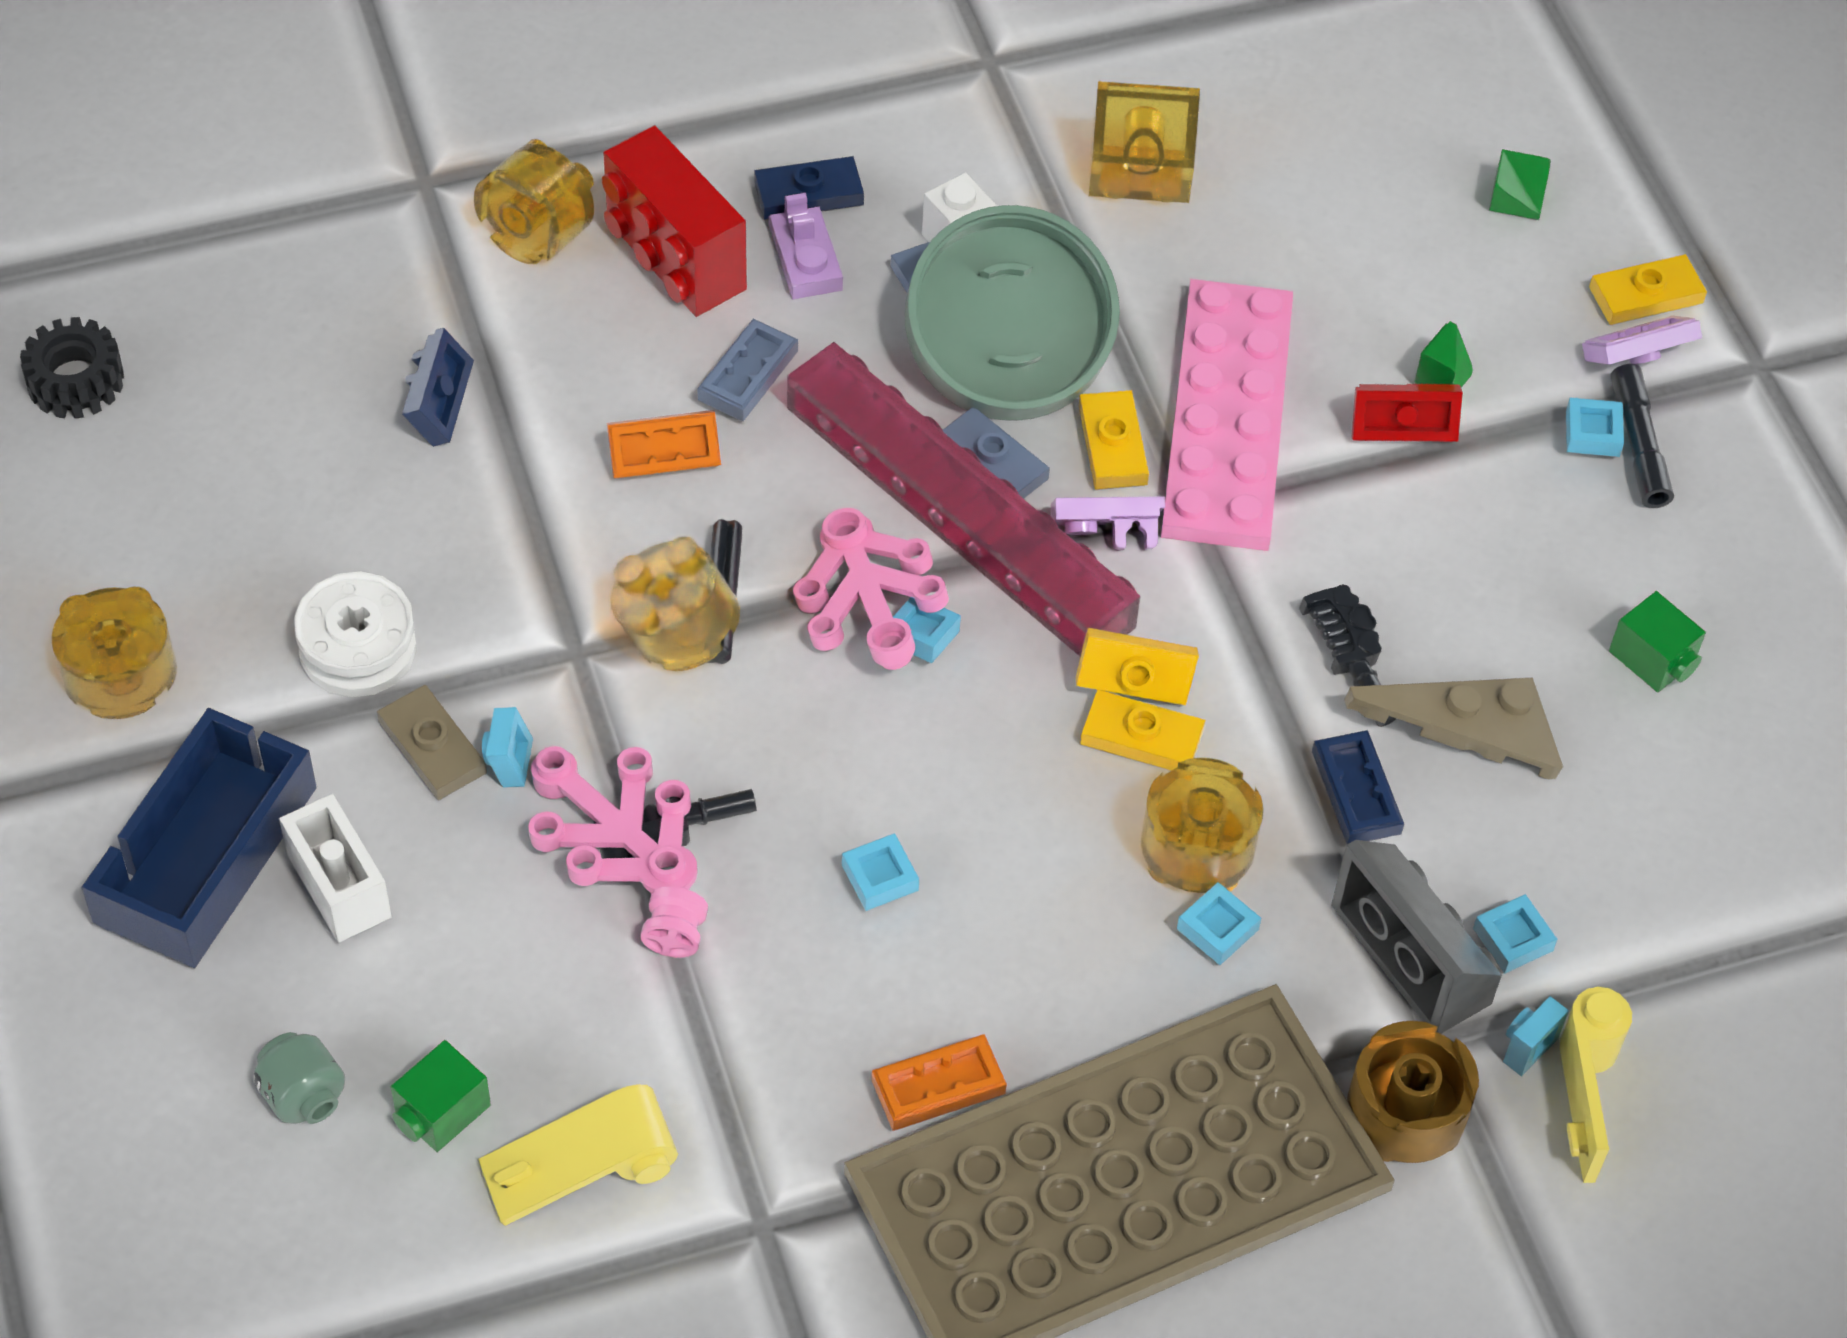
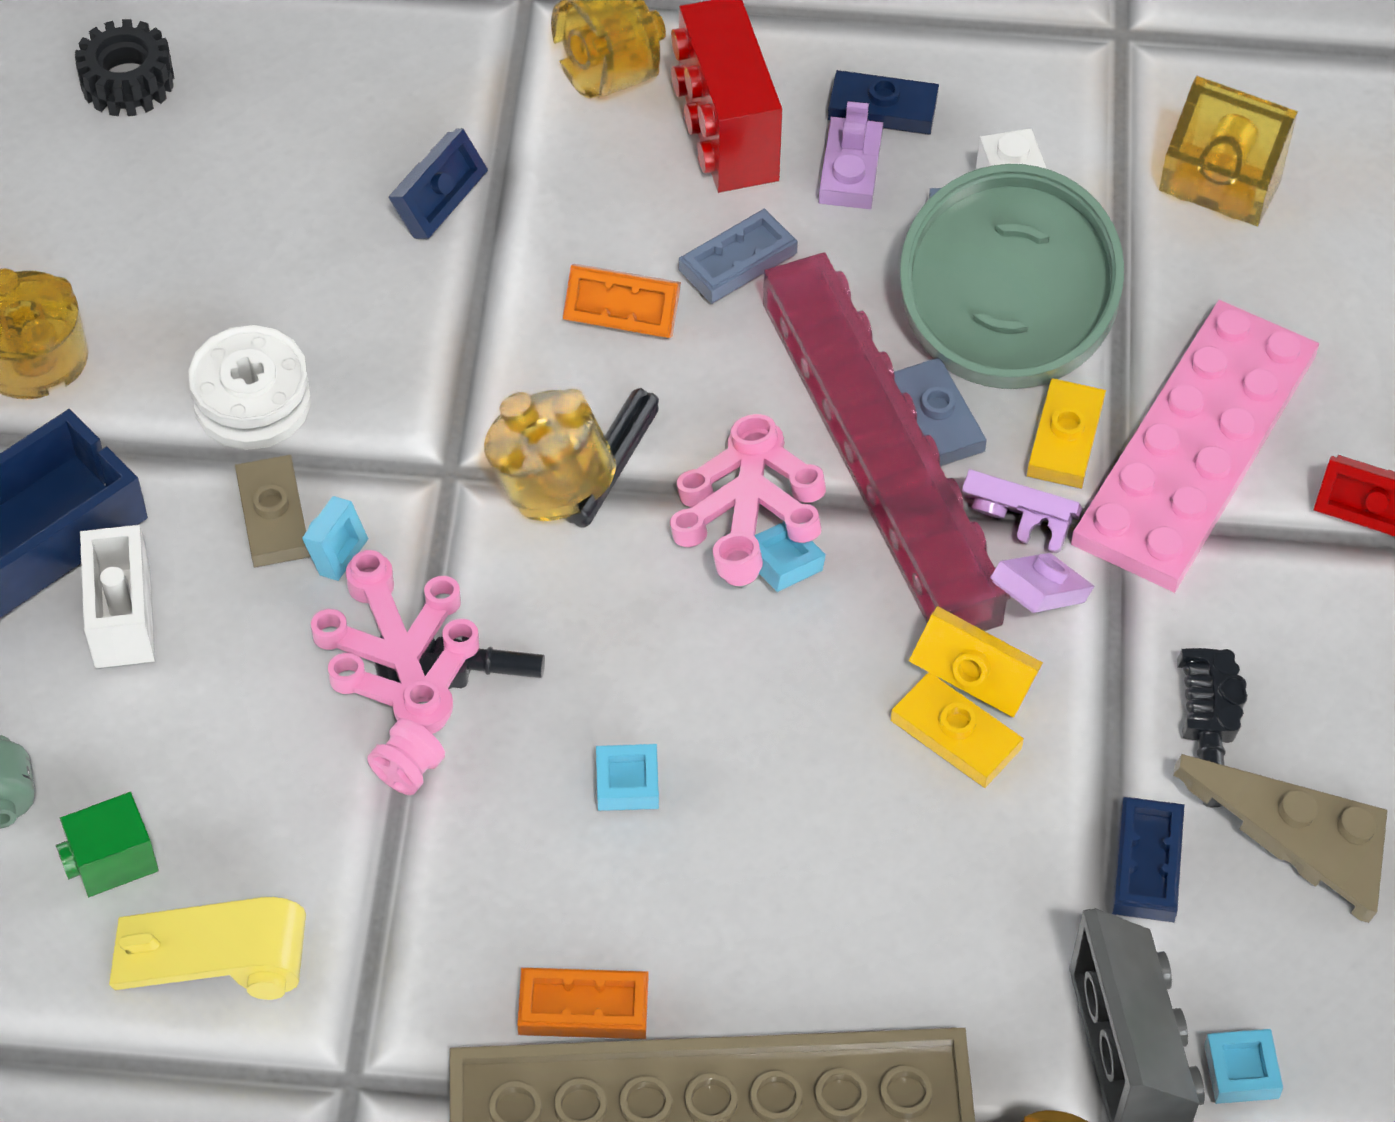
camera: 25 degrees right, 0 degrees up
(1162, 577) = (1041, 582): none -> lavender plate
(1201, 826) = (962, 842): clear yellow brick -> none
(1219, 923) = (938, 946): medium azure plate -> none

